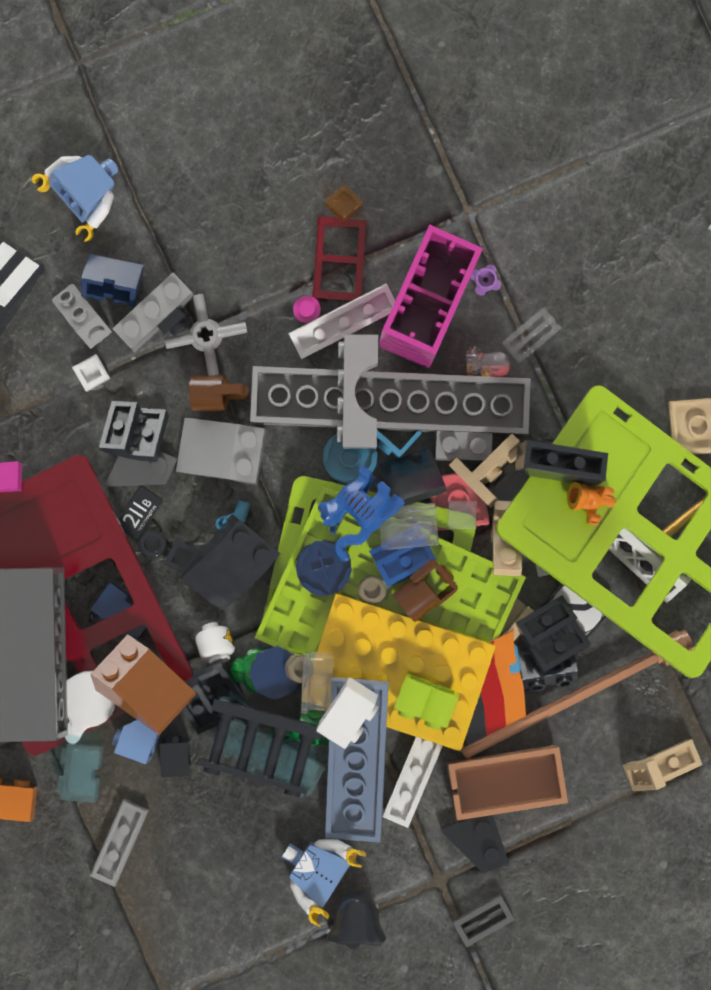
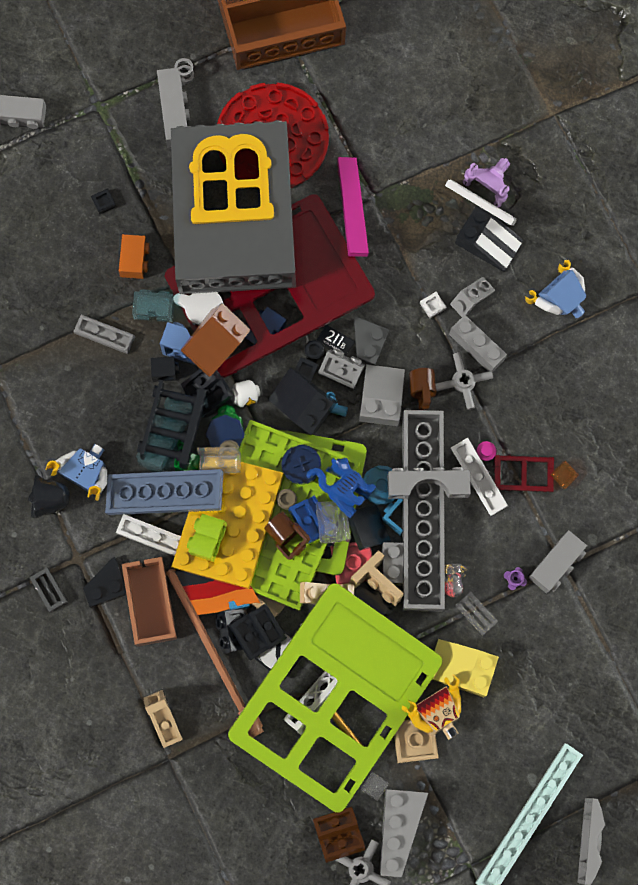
camera: 85 degrees right, 10 degrees down
(112, 279) = (499, 315): brick -> none
(134, 431) = (393, 333): slope -> none
(173, 323) = (471, 358): black plate -> none
(180, 505) = (341, 368): none -> light grey bracket
(347, 713) = (197, 479): white brick -> none
(429, 296) = (499, 526): dark pink brick -> none
(462, 514) = (342, 563): clear tile -> none
(466, 218) = (558, 562): none -> light grey brick
(561, 463) = (383, 628): black brick -> none
(590, 498) = (357, 653): orange piece -> none
(606, 354) = (469, 665): none -> light yellow slope
(664, 394) = (438, 710): none -> torso

